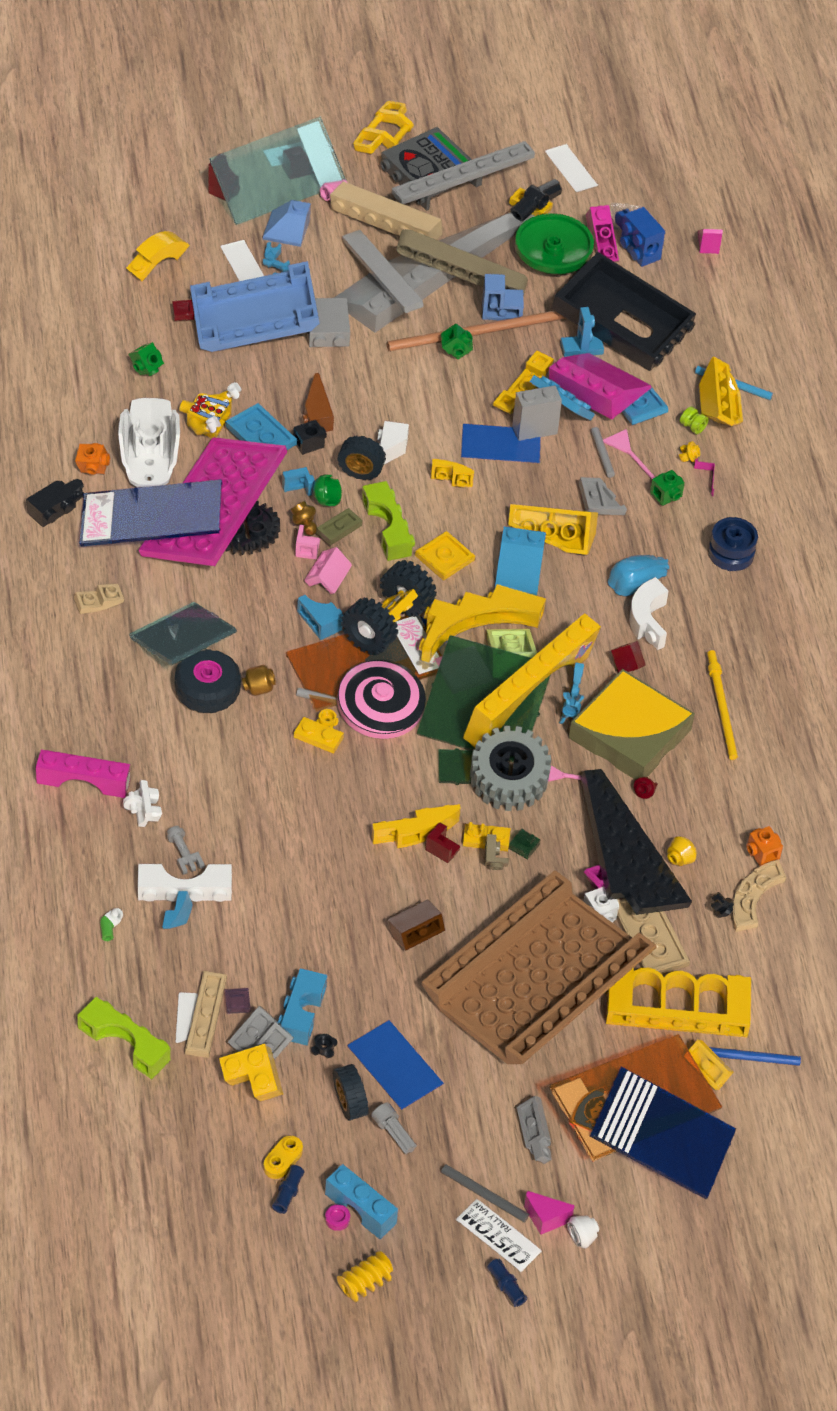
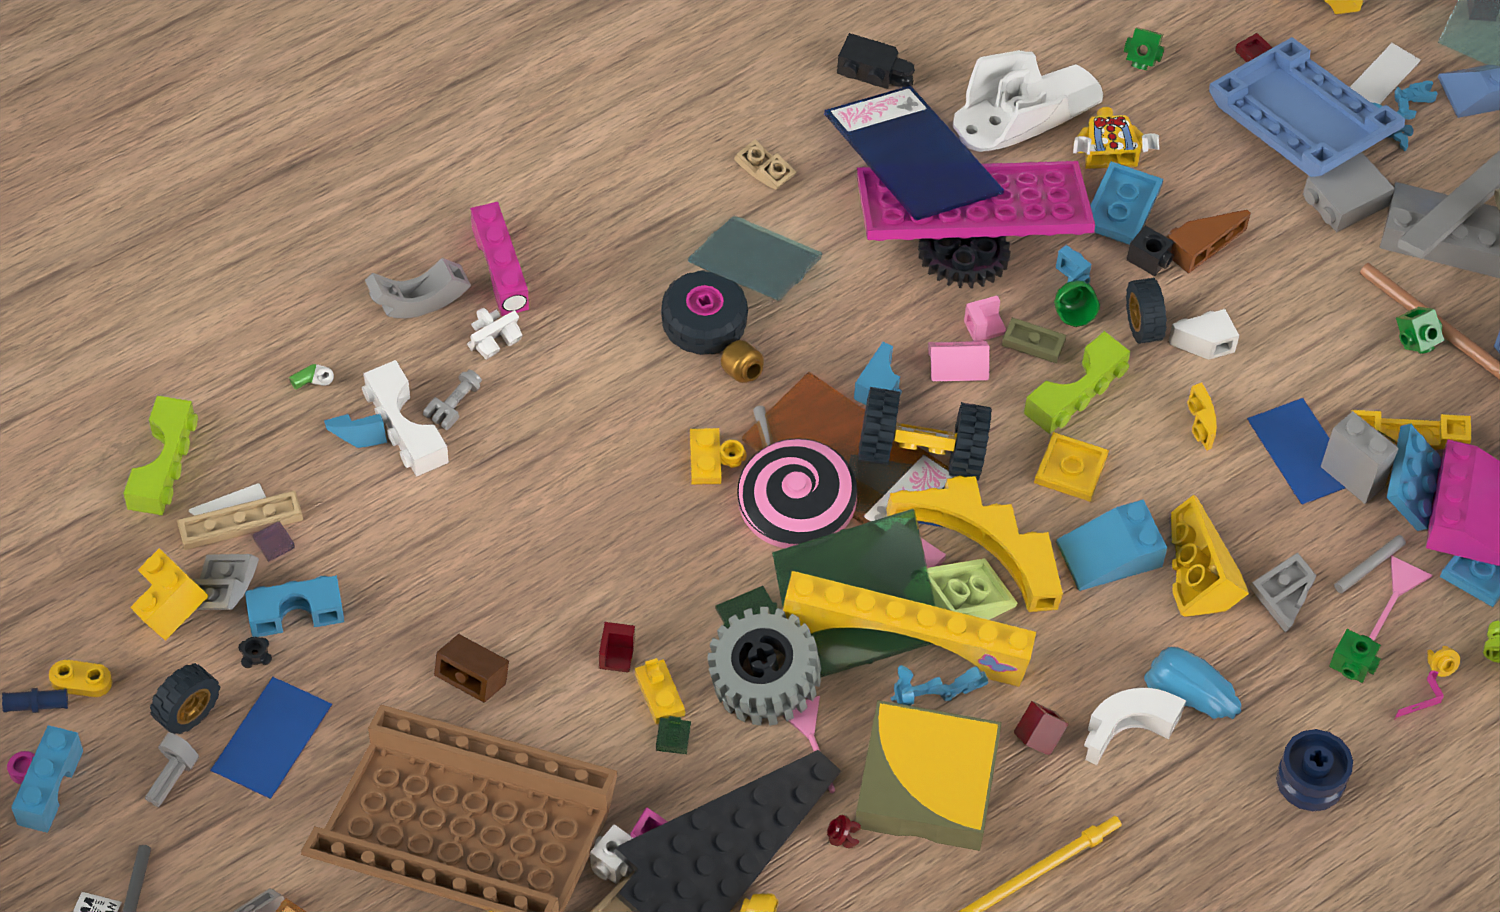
camera: 65 degrees right, 5 degrees up
(82, 827) = (422, 294): none -> light grey arch
(92, 458) = (956, 65): orange brick -> none
(304, 515) = (1022, 295): pearl gold animal -> none
(415, 830) = (614, 606): yellow slope -> none
(492, 849) = (629, 701): dark tan bracket -> none

